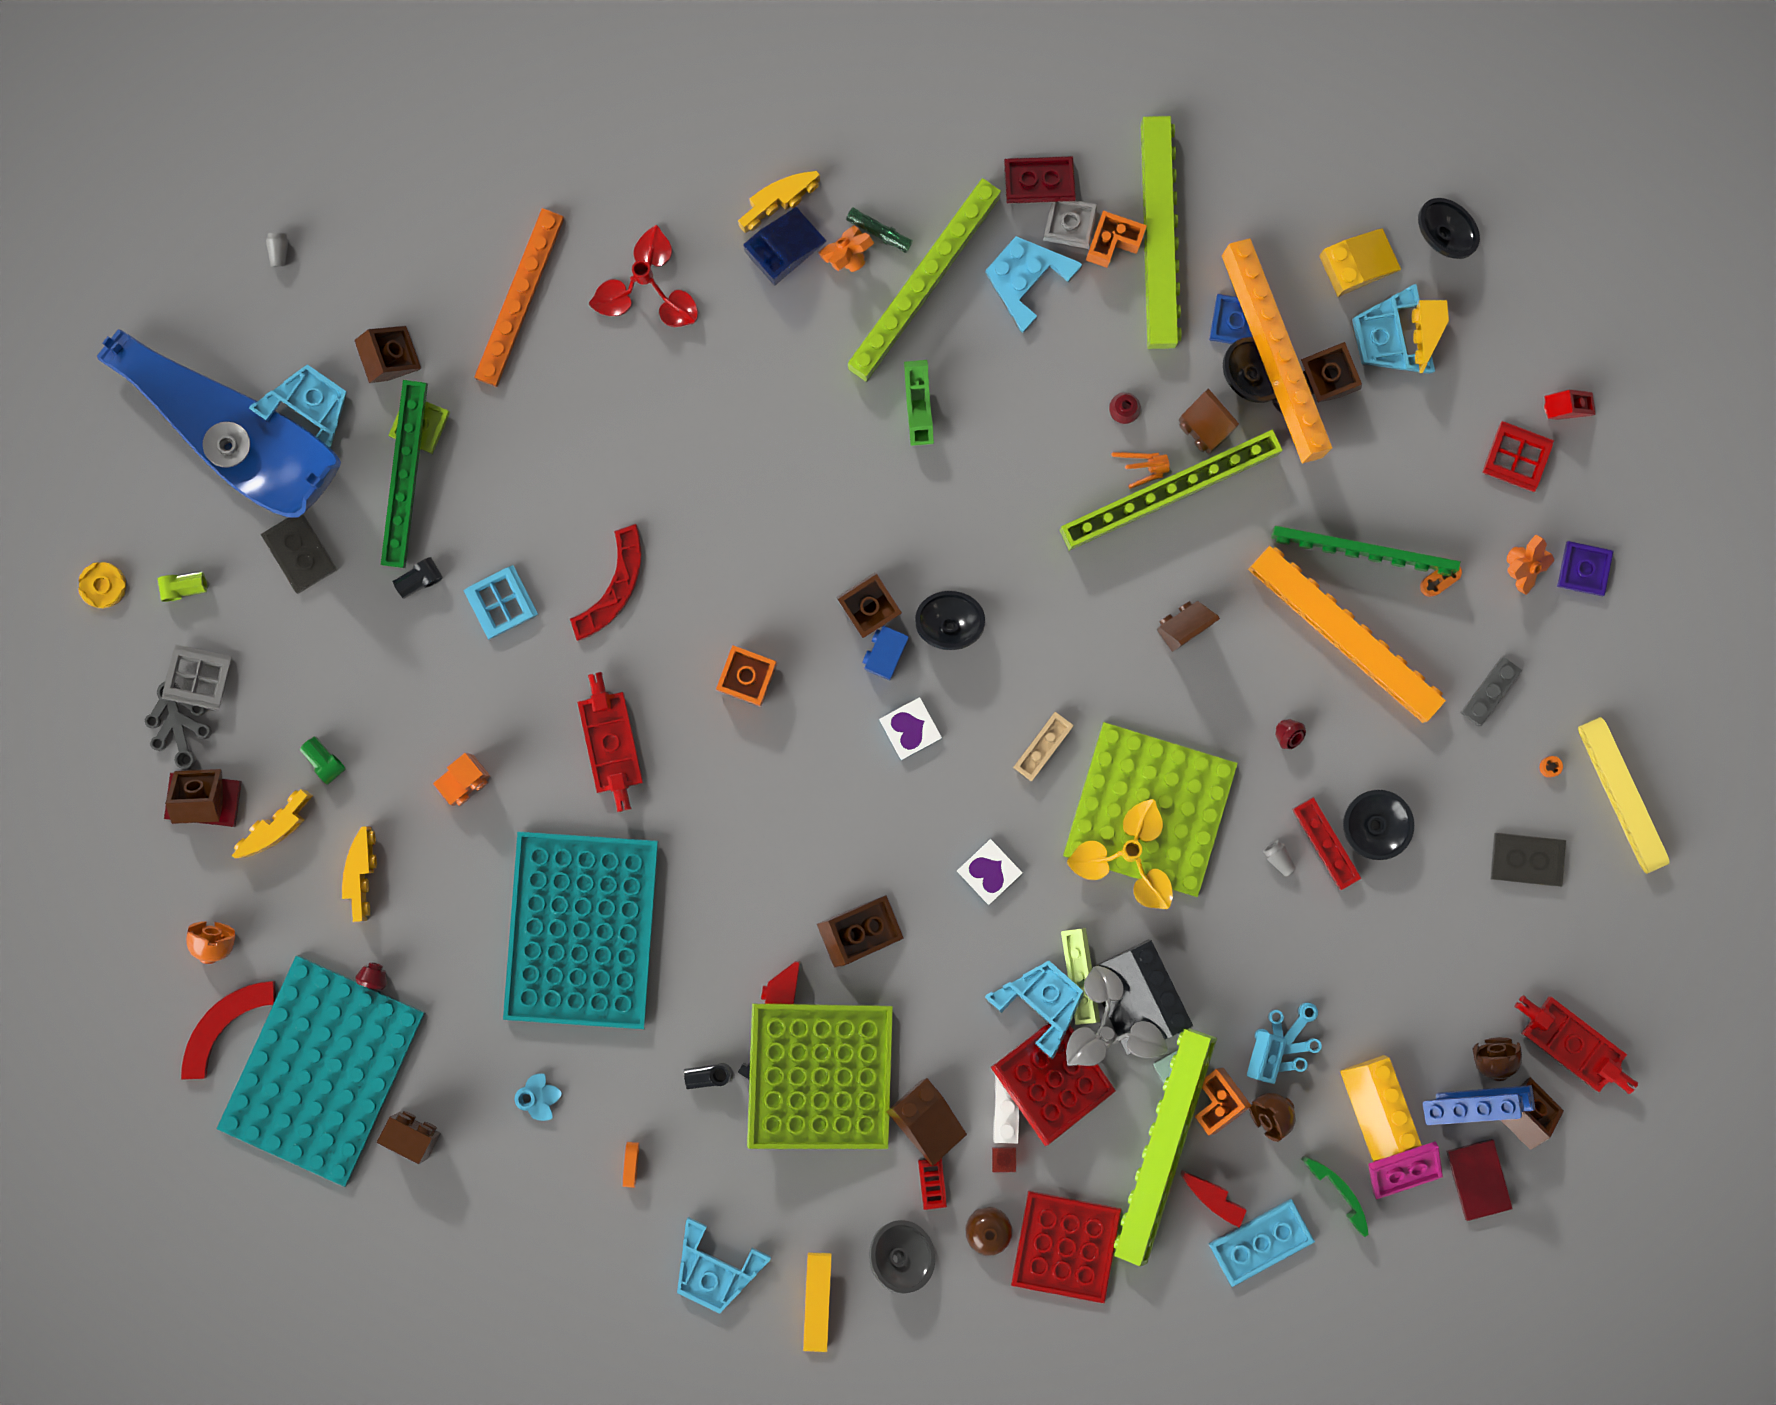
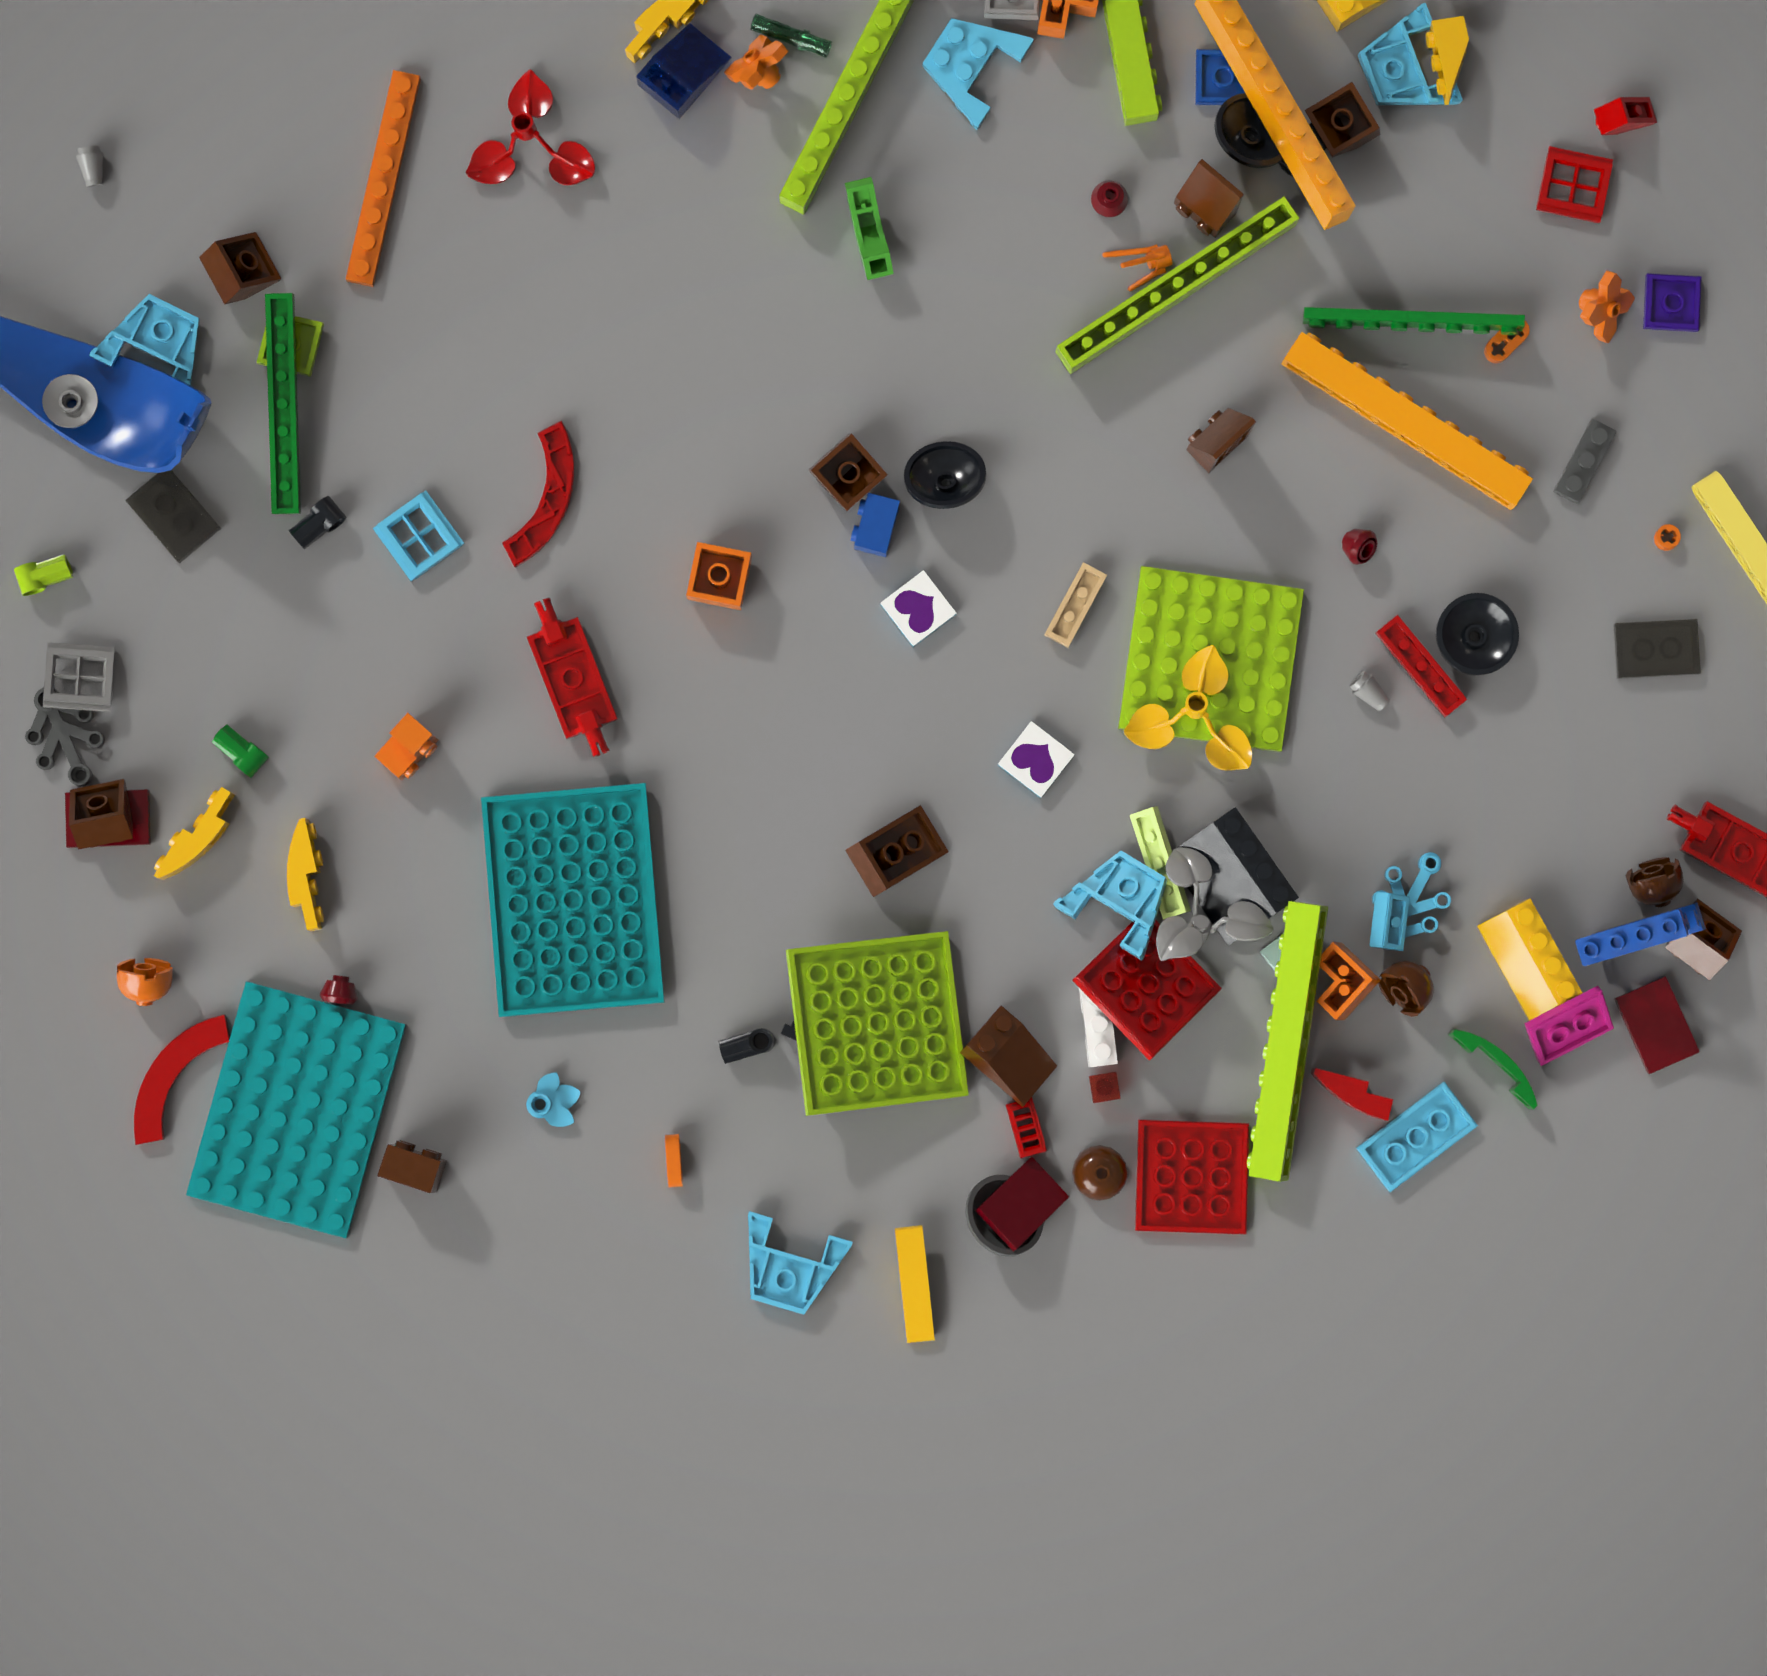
camera: 10 degrees left, 0 degrees up
(782, 987) = (817, 926): red slope -> none
(918, 1249) = (1022, 1203): none -> dark red tile

